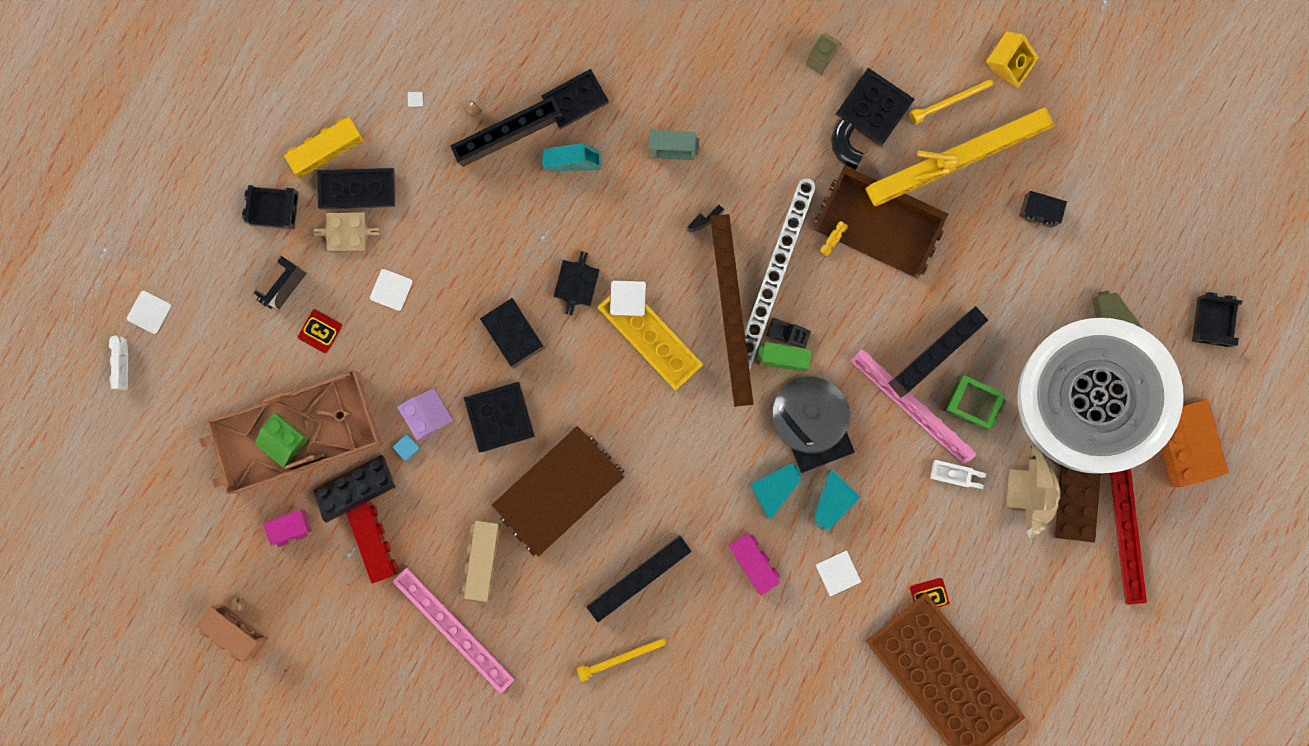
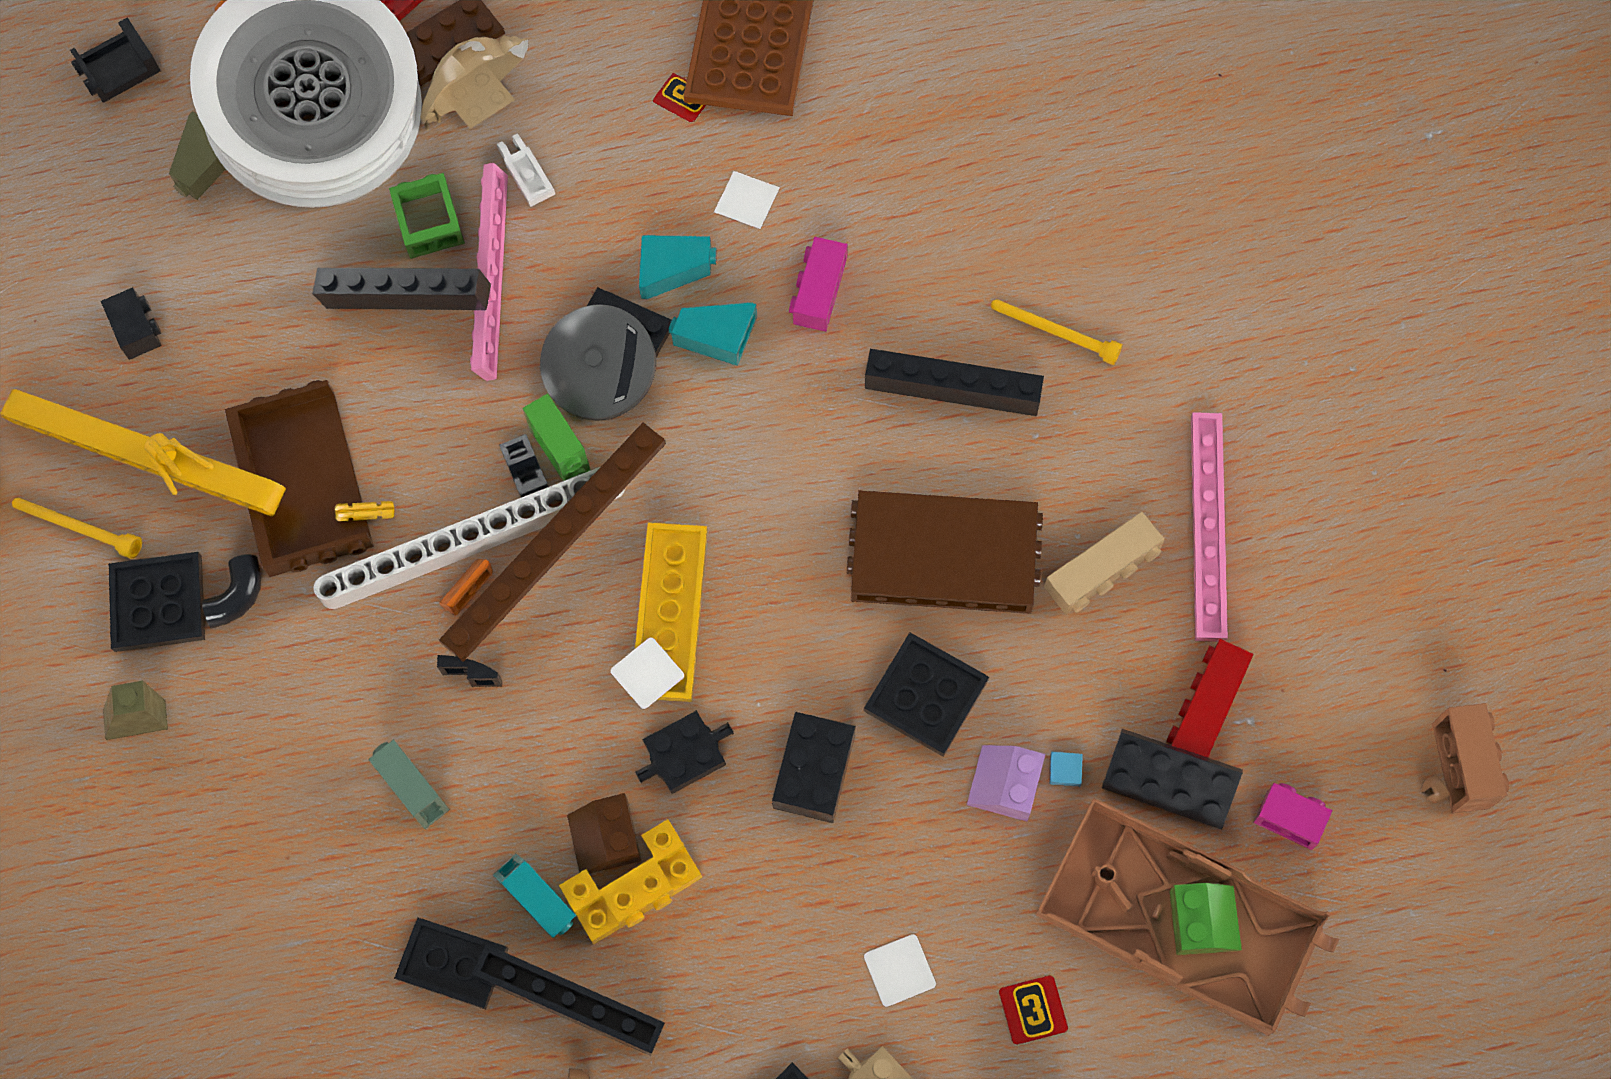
camera: 130 degrees left, 15 degrees down
(530, 206) = (635, 892): none -> yellow bracket
(570, 213) = (604, 834): none -> reddish brown slope
(751, 254) = (467, 586): none -> orange slope

